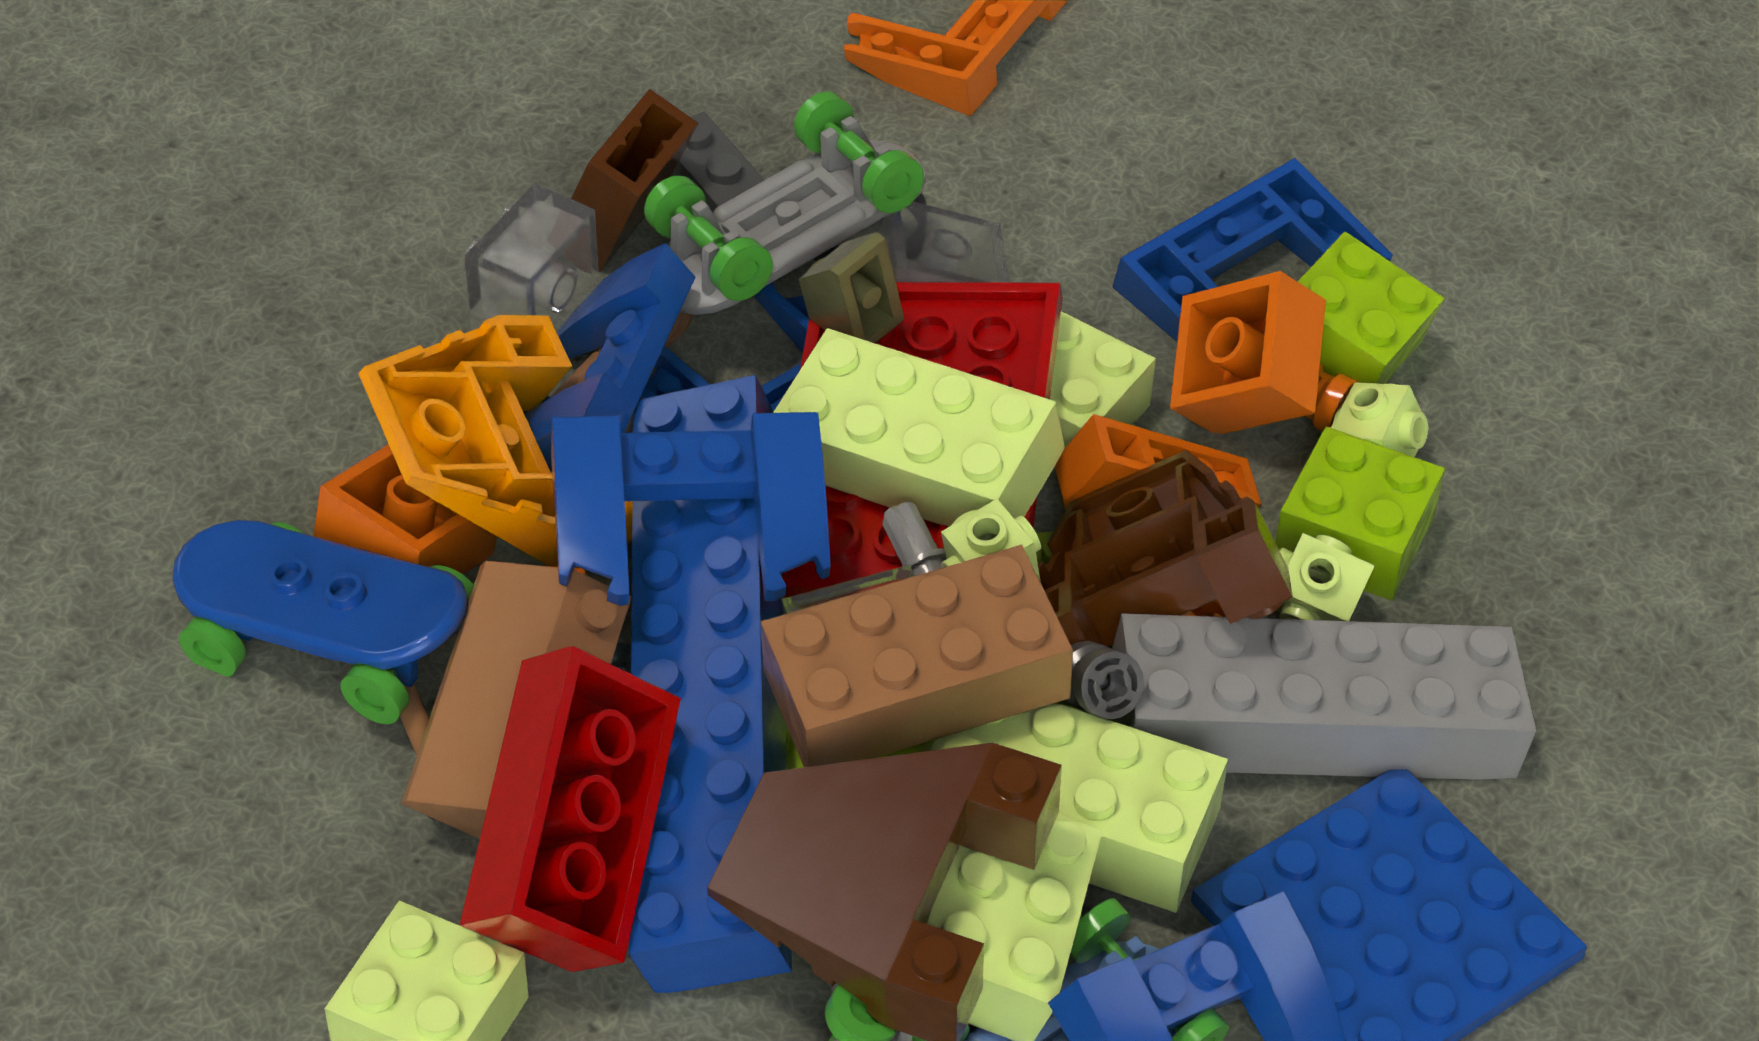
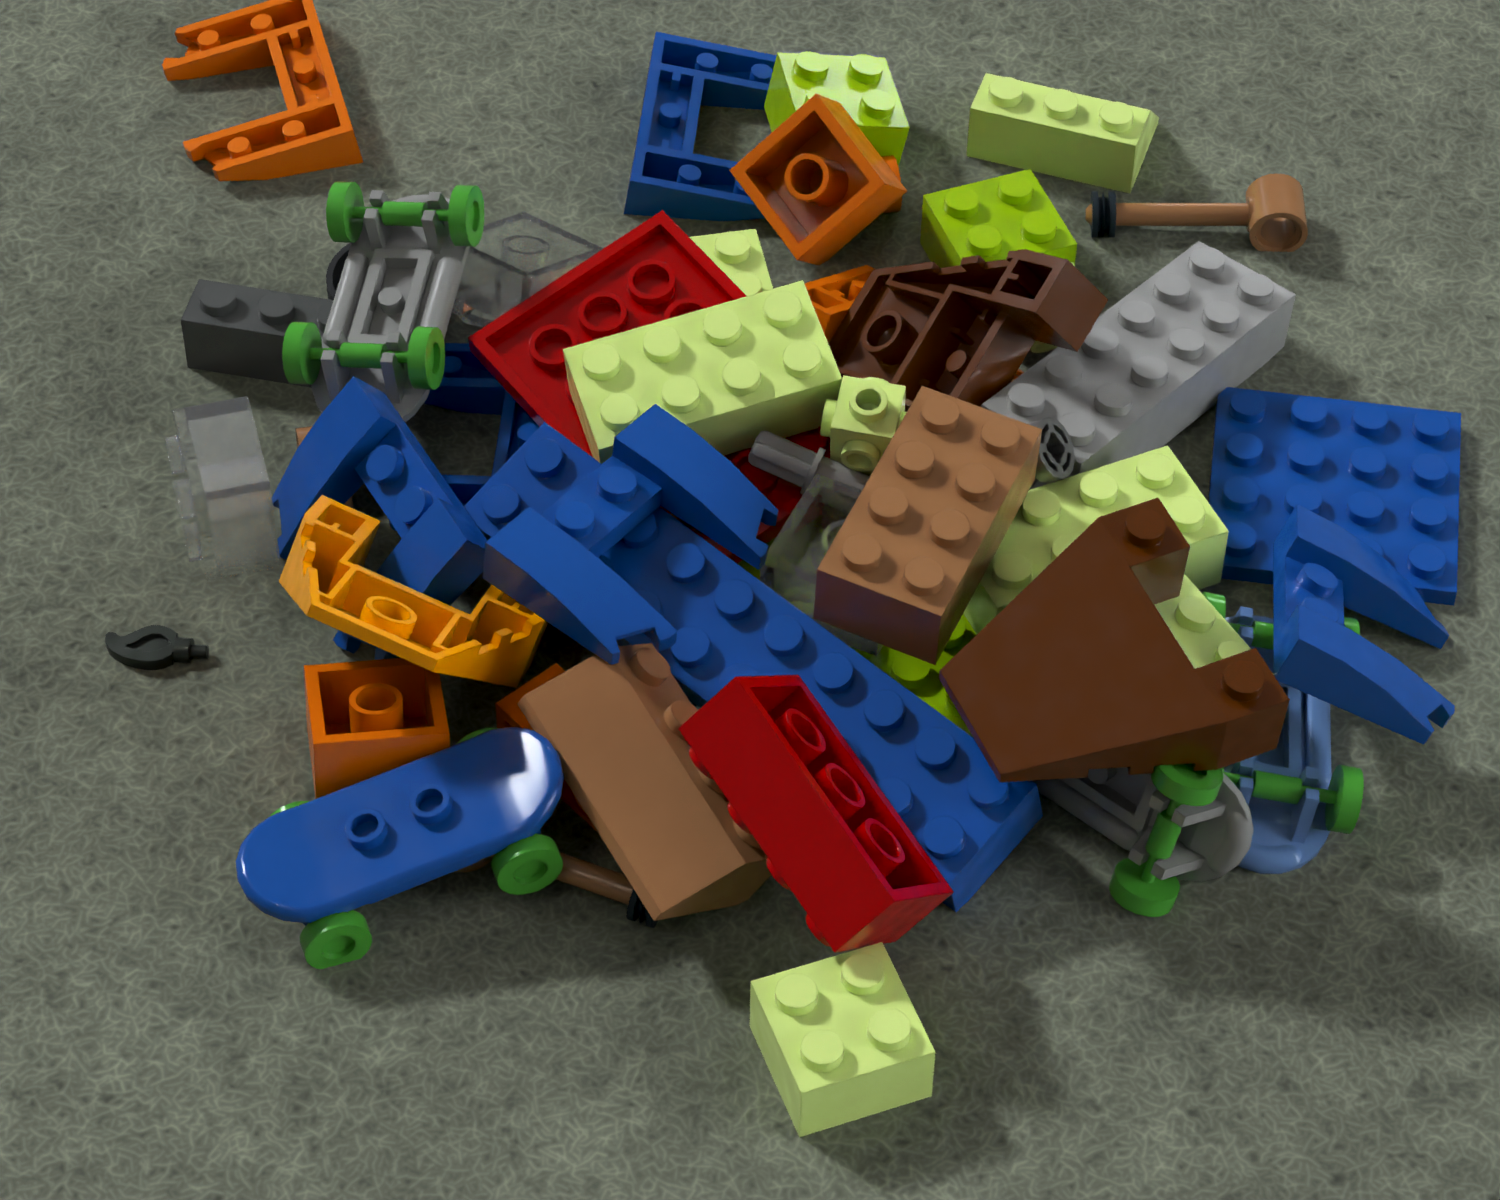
camera: 45 degrees left, 0 degrees up
(367, 348) = (153, 648): none -> pearl dark grey piece
(629, 167) = (215, 347): reddish brown brick -> none
(854, 289) = (530, 312): olive slope -> none
(1383, 416) = (938, 165): yellowish green brick -> none
(1545, 463) = (1059, 132): none -> yellowish green slope
(1633, 661) = (1271, 214): none -> medium nougat piece

